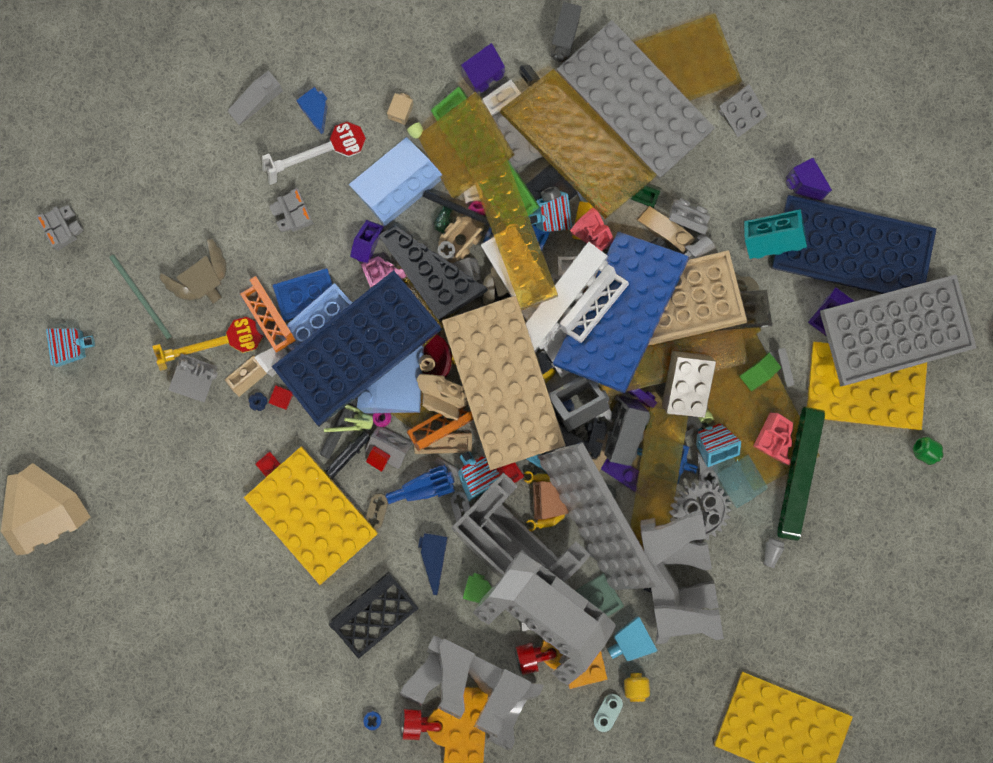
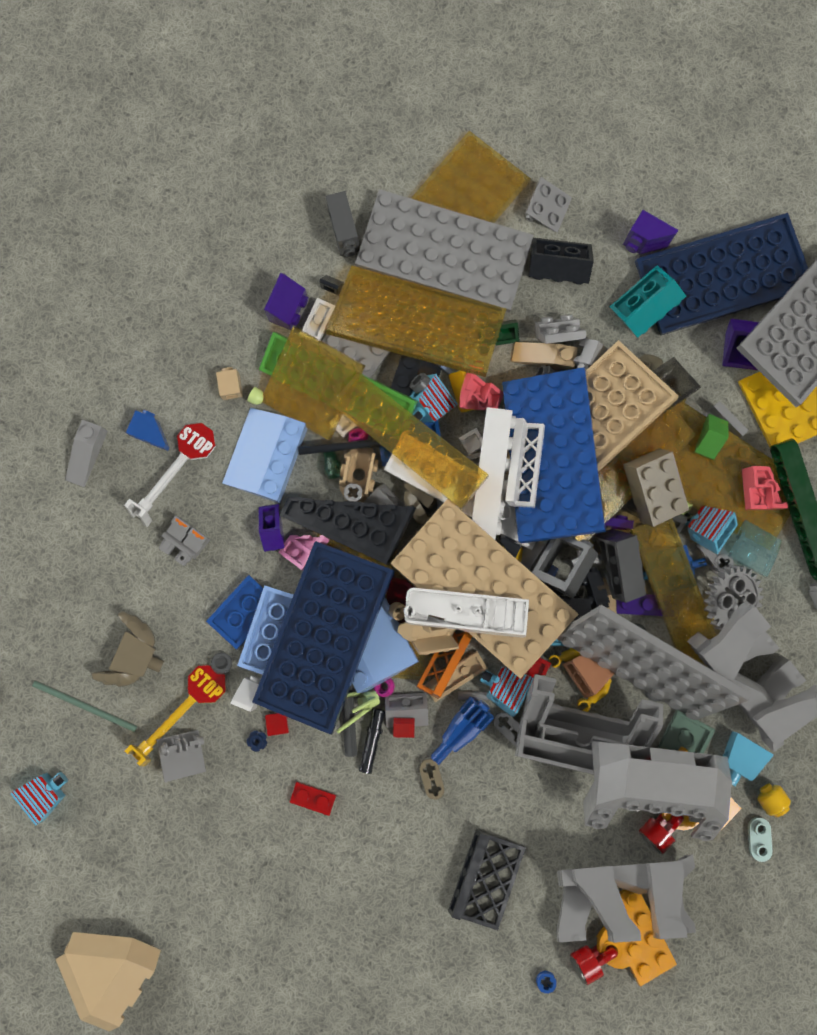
camera: 30 degrees left, 0 degrees up
(245, 376) = (230, 724): tan slope -> none
(271, 309) = (218, 646): orange fence -> none
(311, 515) = (372, 820): yellow plate -> none
(433, 557) = (509, 788): dark blue slope -> none
(476, 588) = (570, 796): bright green slope -> none
(478, 392) = (467, 612): none -> white piece
(725, 161) = (561, 261): none -> black slope

